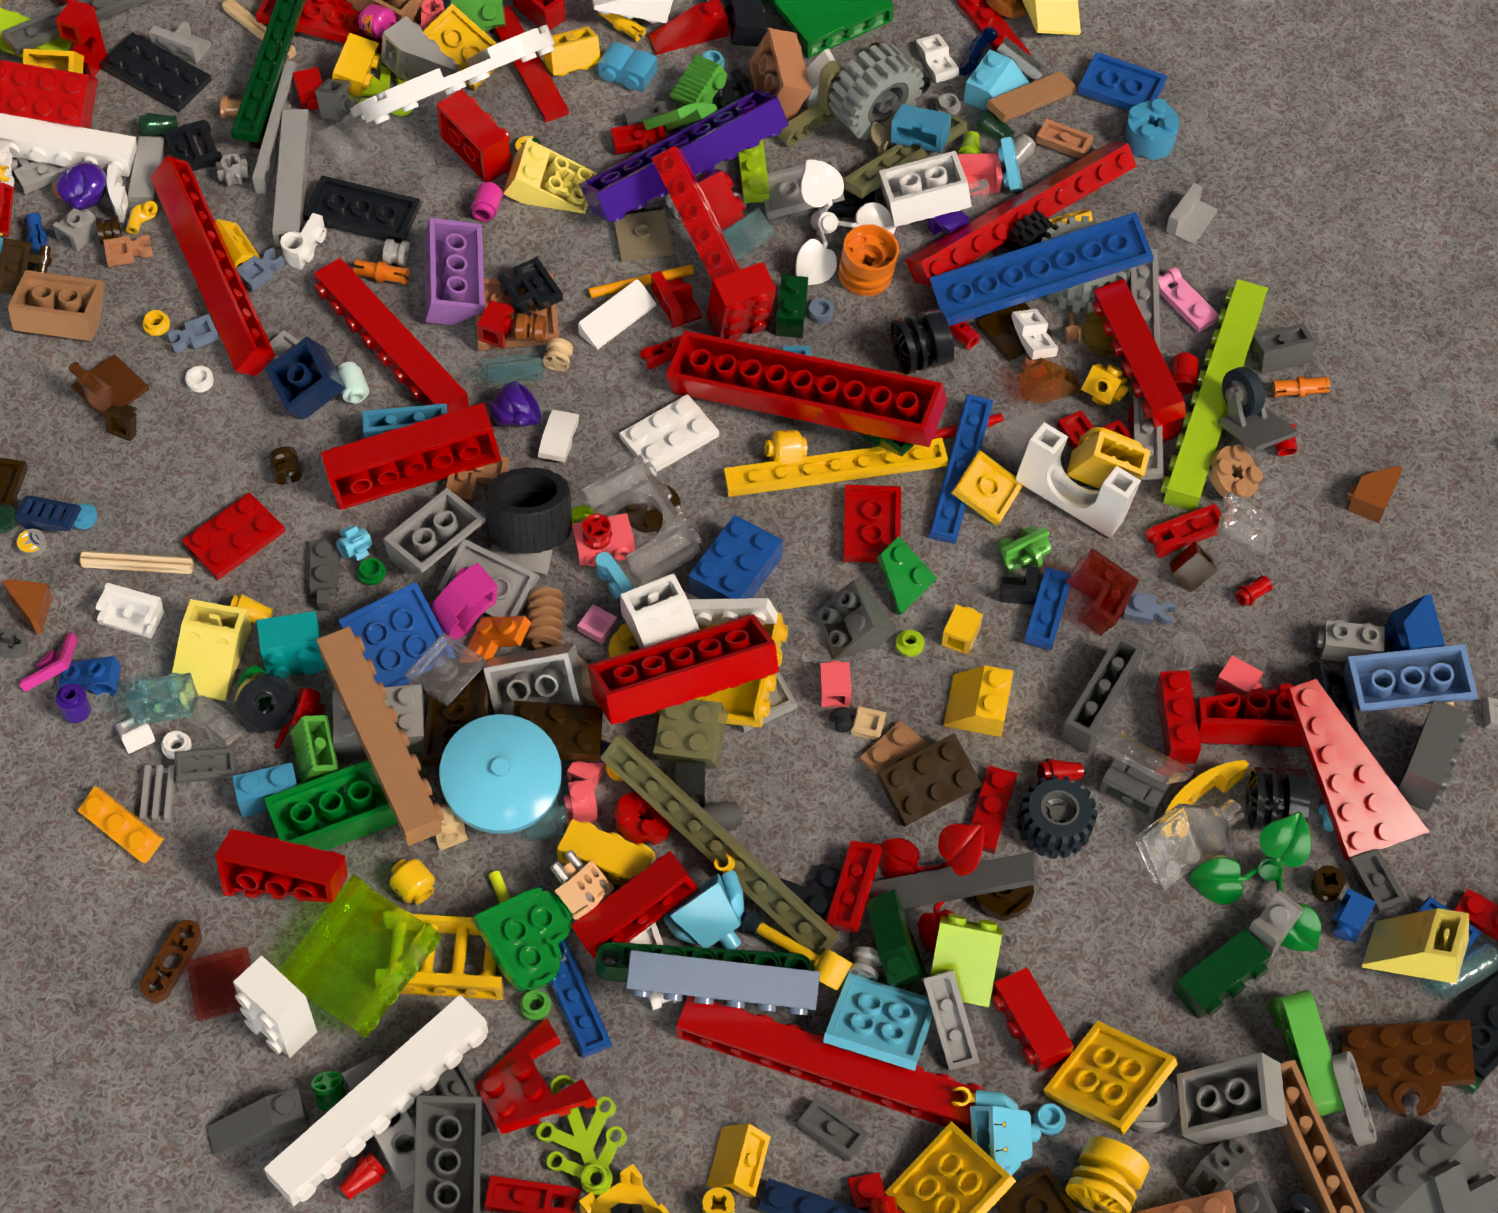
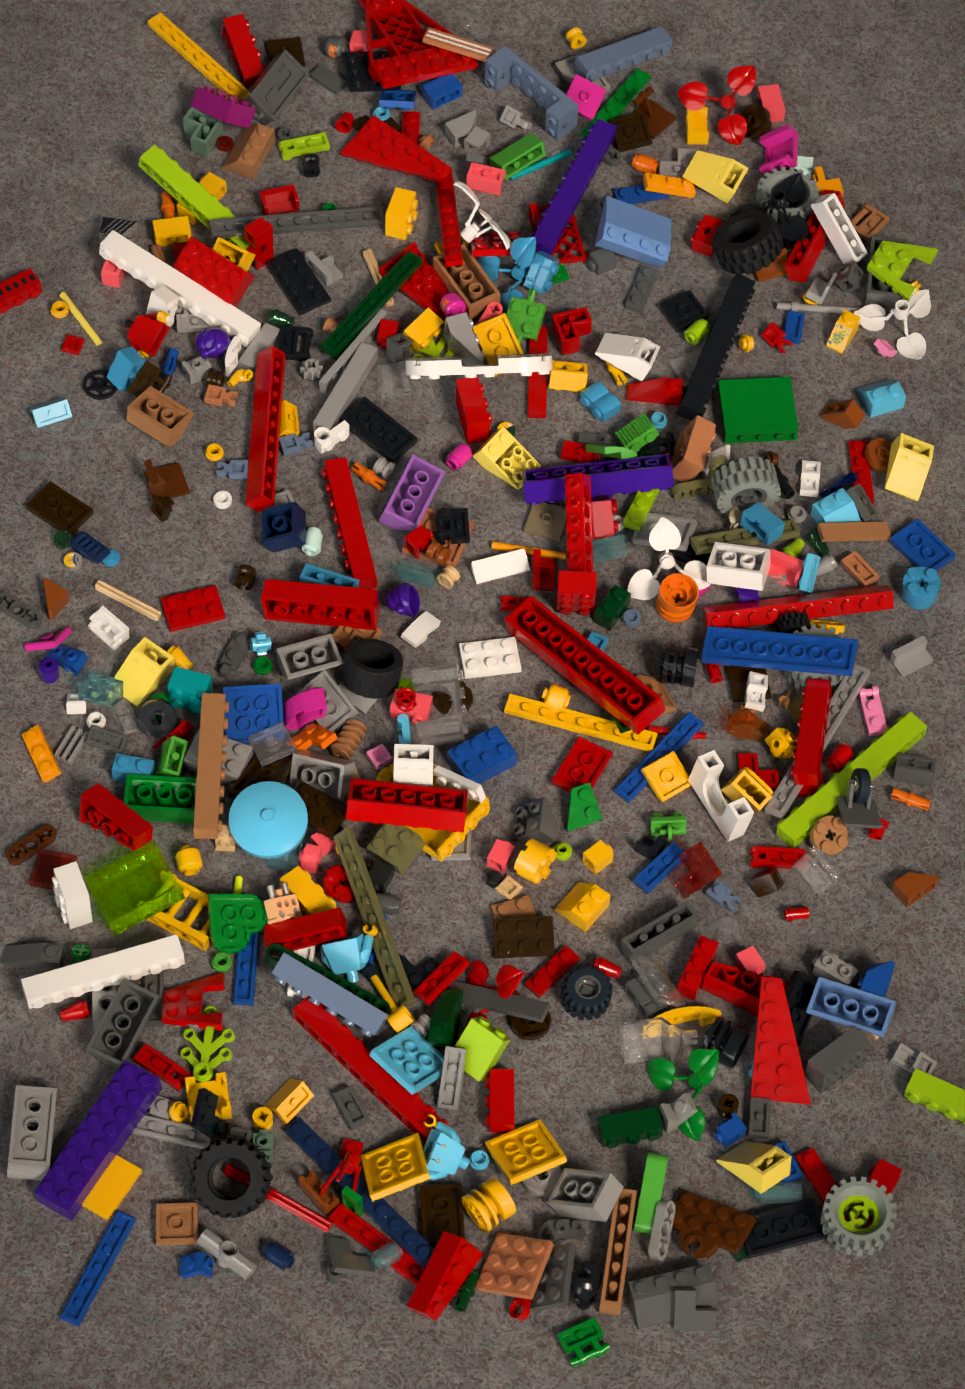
camera: 25 degrees right, 0 degrees up
(886, 671) = (535, 861): none -> yellow brick

